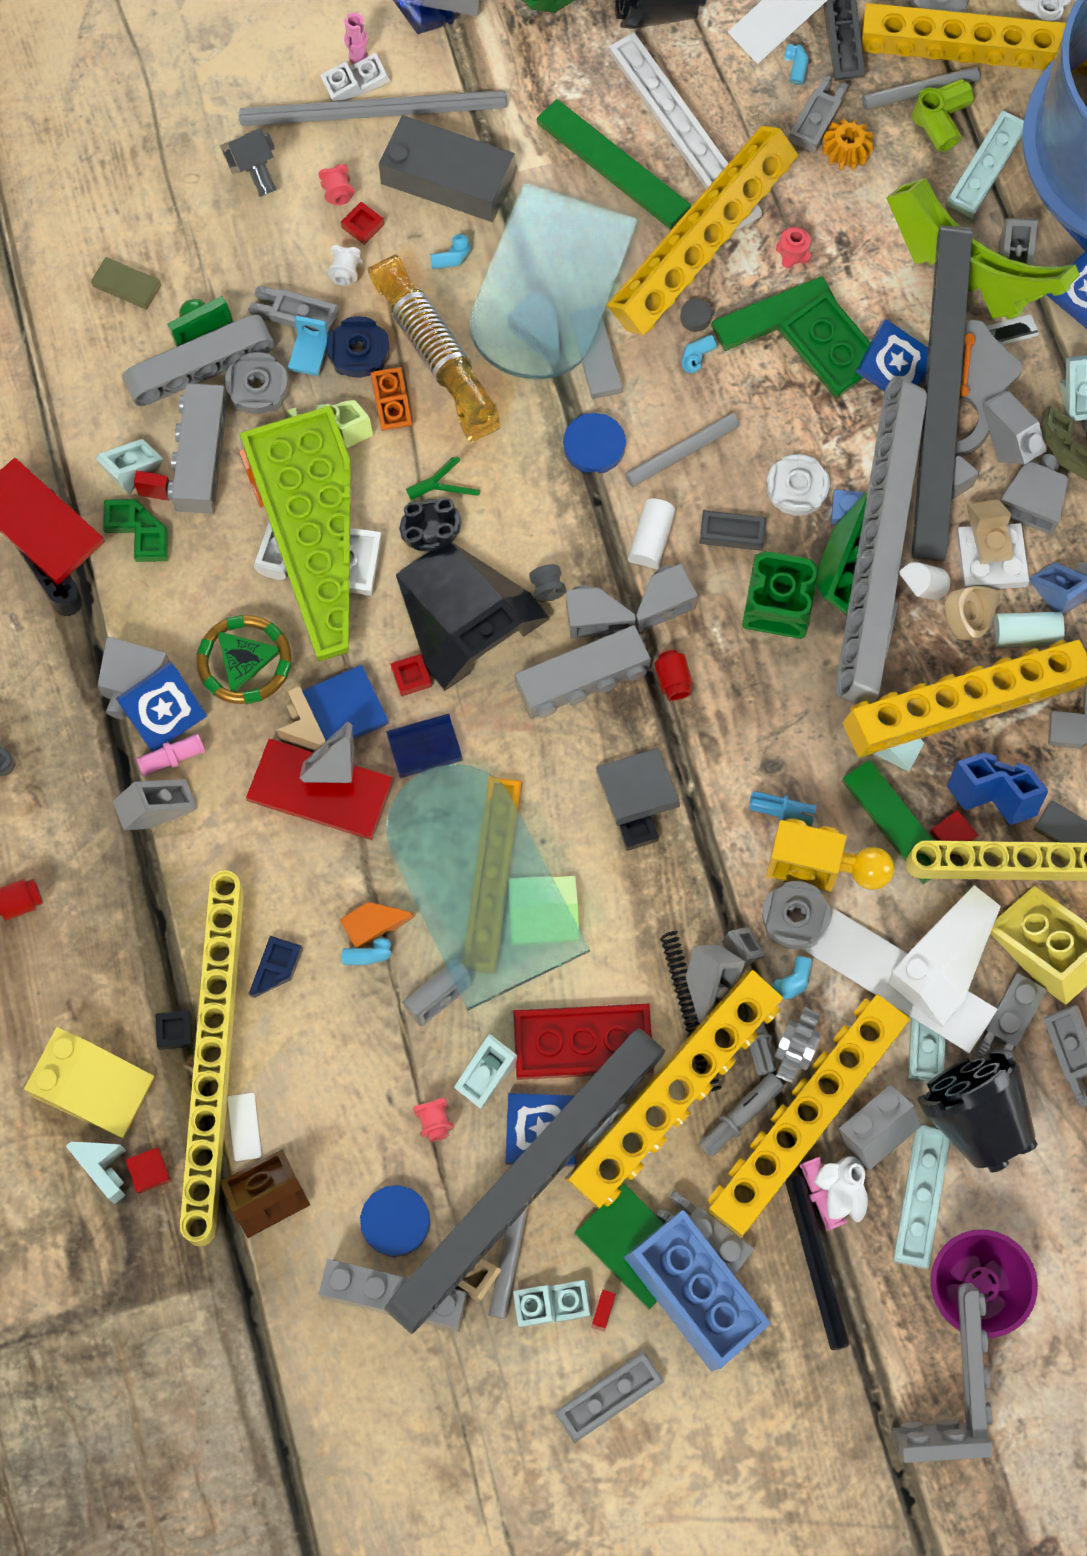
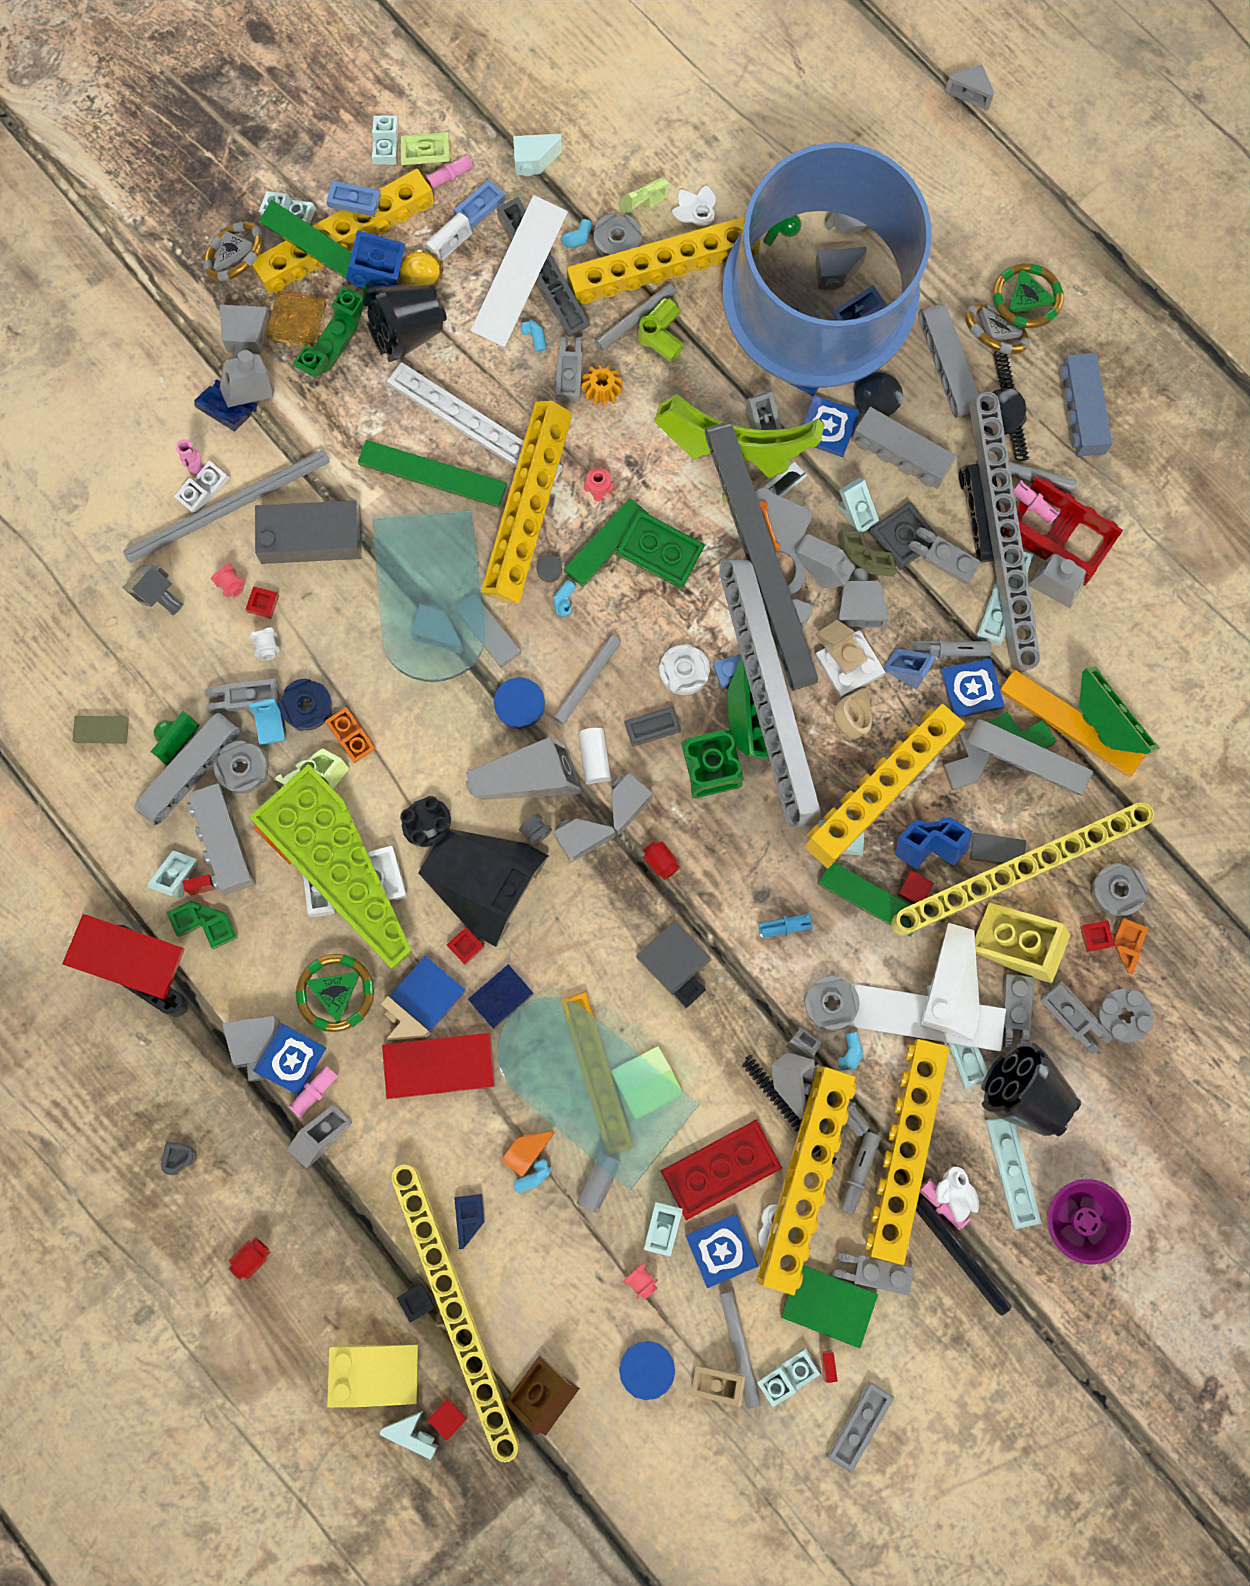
camera: 25 degrees left, 5 degrees up
(244, 1126) = (502, 1351): white sticker -> none
(332, 760) = (439, 1043): light grey slope -> none
(373, 1290) = (673, 1429): light grey brick -> none
(431, 483) = (412, 788): green plant -> none
(448, 366) = (365, 677): clear yellow piece -> none
(455, 254) = (345, 598): medium azure arm -> none
(523, 1181) = (731, 1303): dark grey beam -> none
(566, 516) = (529, 772): none -> light grey slope
(582, 672) = (592, 888): light grey brick -> none
(697, 1291) = (888, 1320): medium blue slope -> none
(798, 1045) = (879, 1104): light grey gear -> none
(819, 855) = (835, 954): yellow brick -> none
(880, 1127) = (963, 1137): light grey brick -> none
(892, 355) = (712, 542): blue tile -> none
(926, 580) = (813, 706): white brick -> none
(948, 1438) = (1115, 1344): light grey bracket -> none
(986, 165) = (711, 357): light aqua tile -> none
(1028, 629) = (901, 708): light aqua brick -> none

